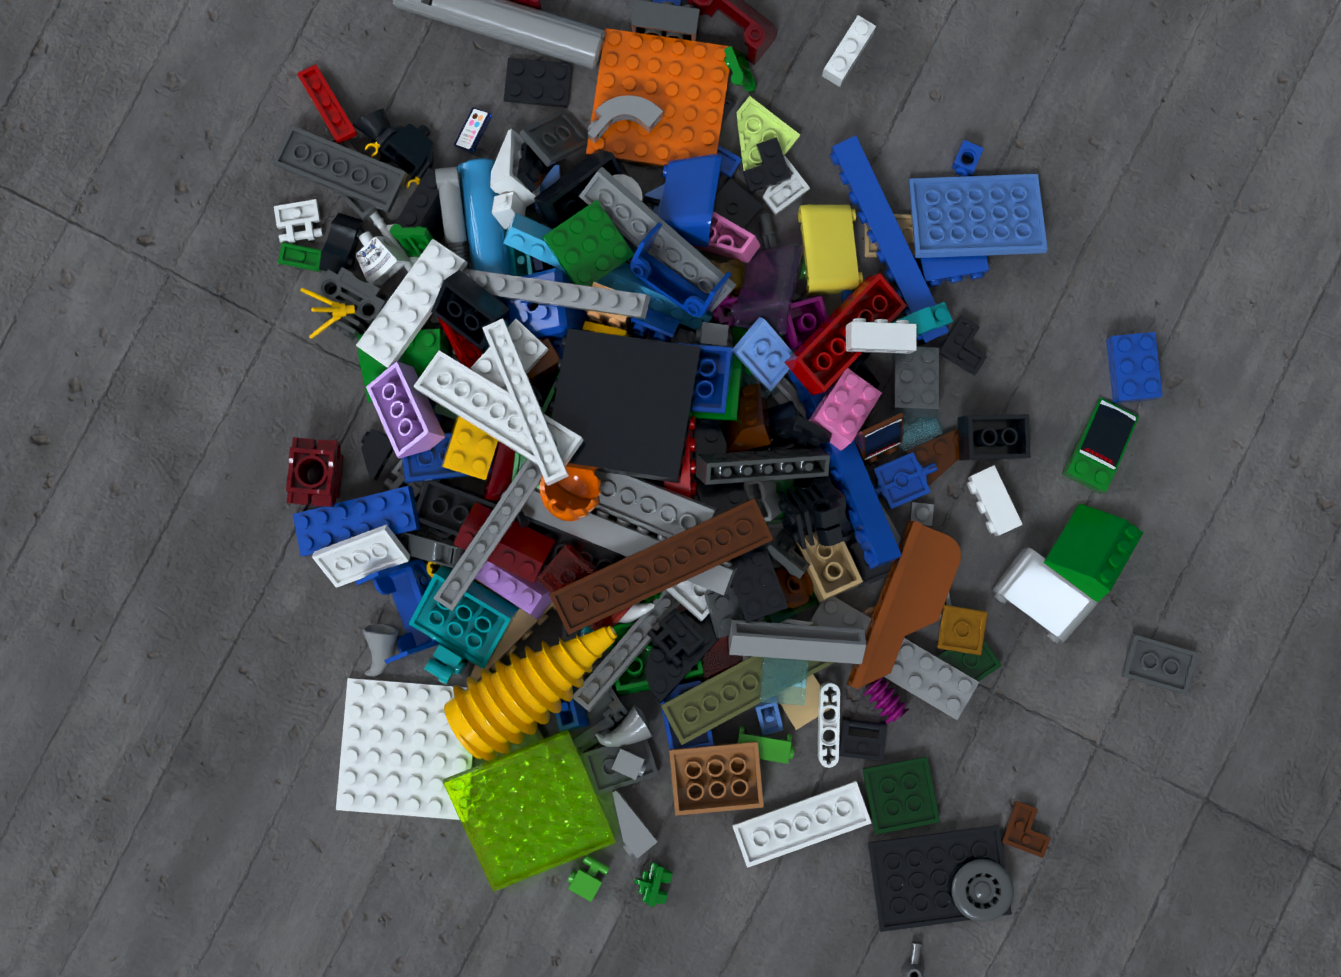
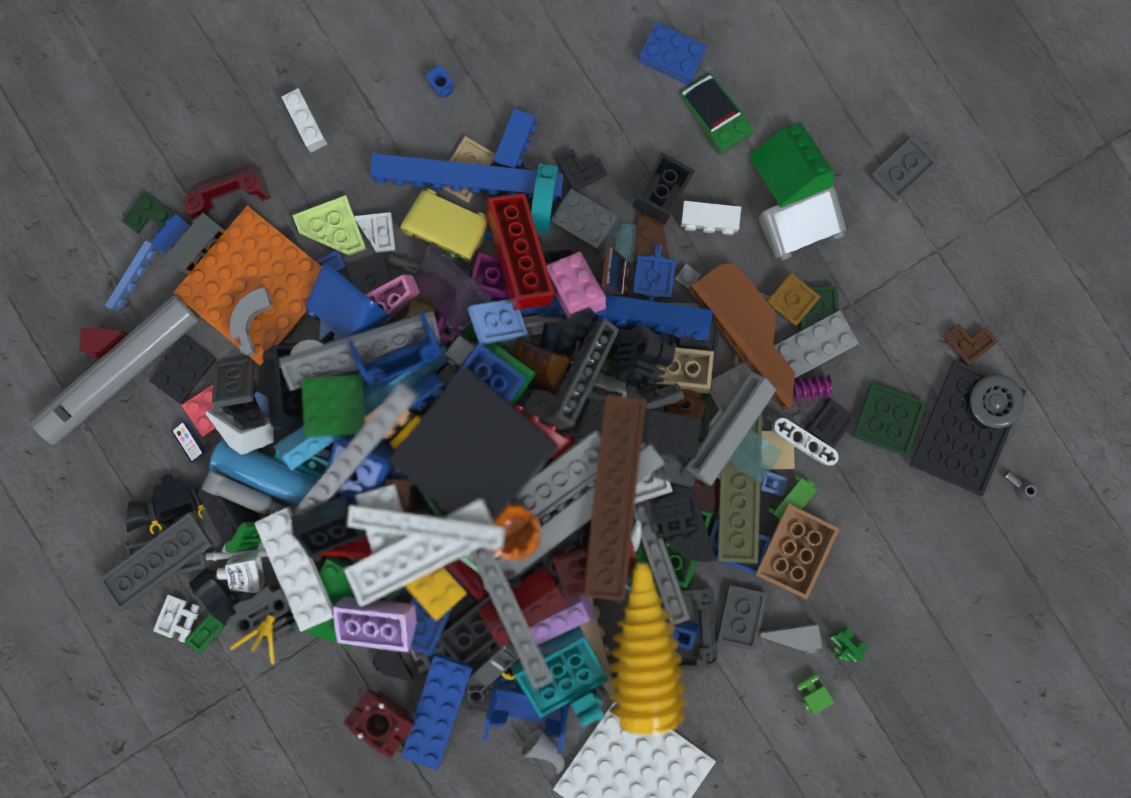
camera: 60 degrees left, 0 degrees up
(326, 104) = (99, 542): red plate -> none
(361, 556) = (466, 723): white plate -> none
(505, 208) = (264, 451): white brick -> none
(506, 119) = (197, 408): none -> coral plate
(529, 810) = (738, 709): clear neon green plate -> none
(629, 764) = (747, 611): light grey brick -> none
(630, 731) = (722, 592): light grey hat -> none
(740, 67) = (268, 209): green plate -> none
(773, 169) = (359, 231): black plate -> none
(801, 824) = (867, 507): white plate -> none
(880, 336) = (538, 225): white brick -> none
(977, 216) = (488, 100): medium blue plate -> none

